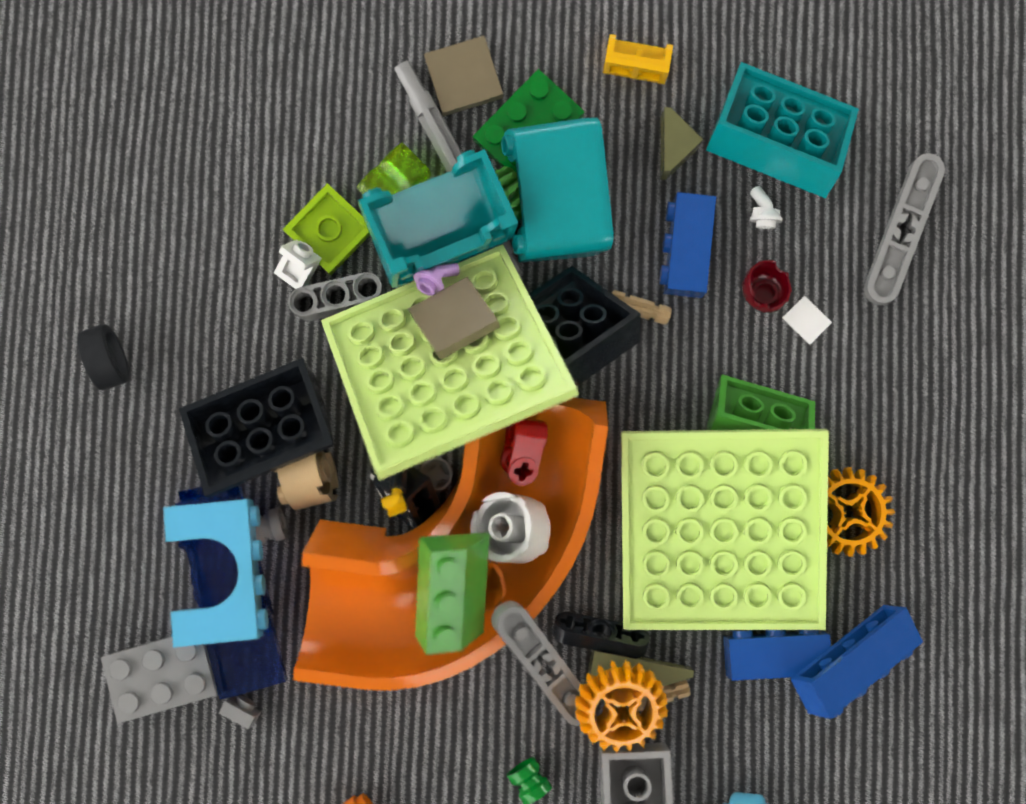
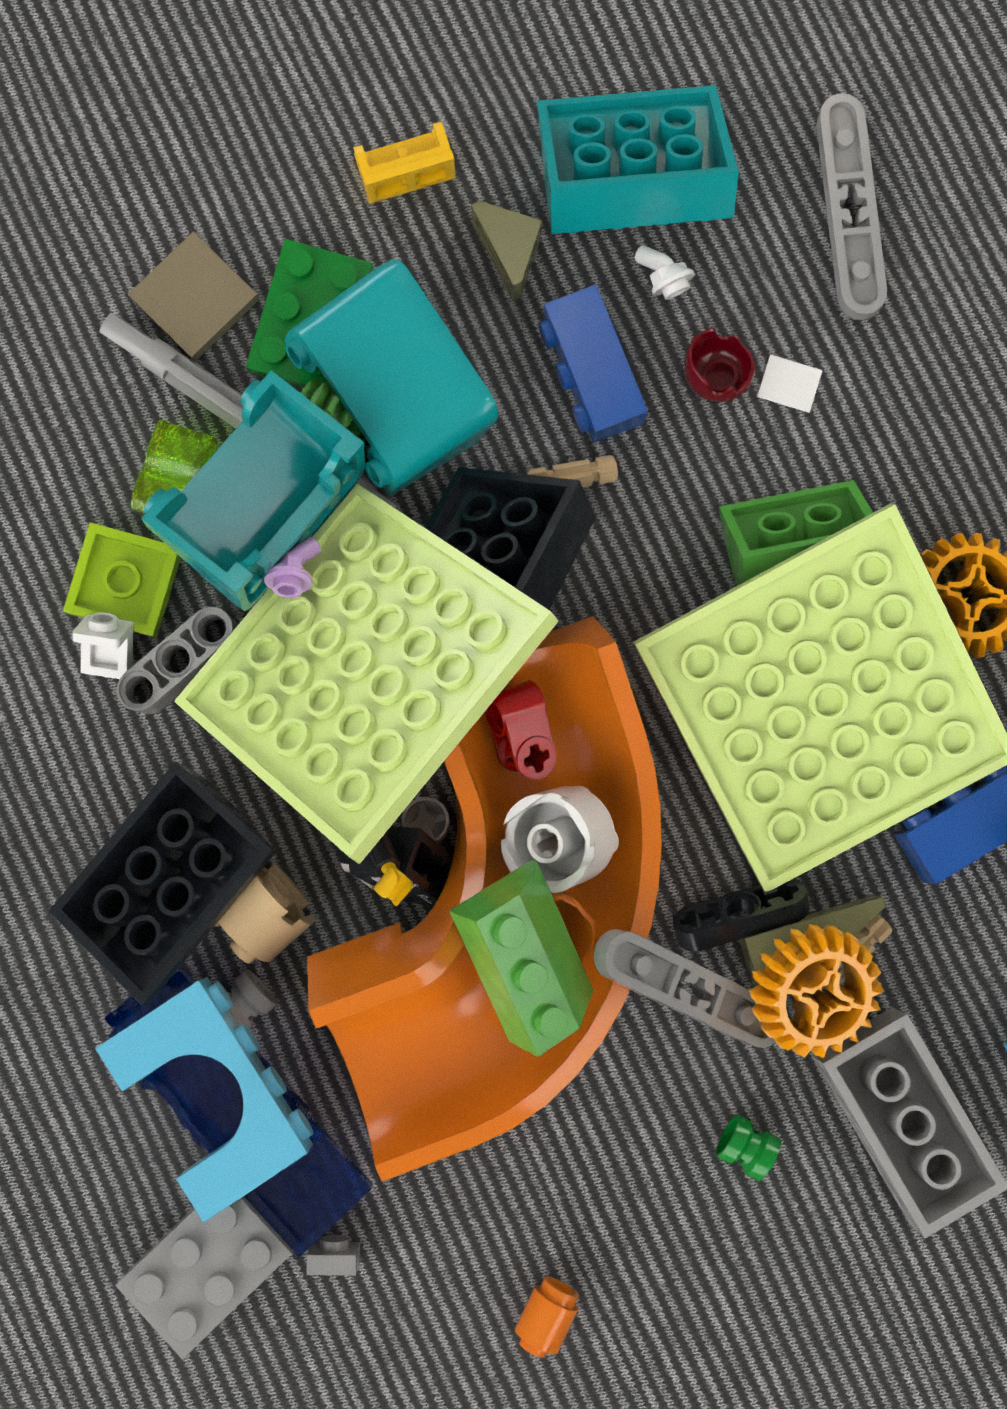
camera: 30 degrees left, 0 degrees up
(454, 318) = (345, 607): dark tan tile -> none

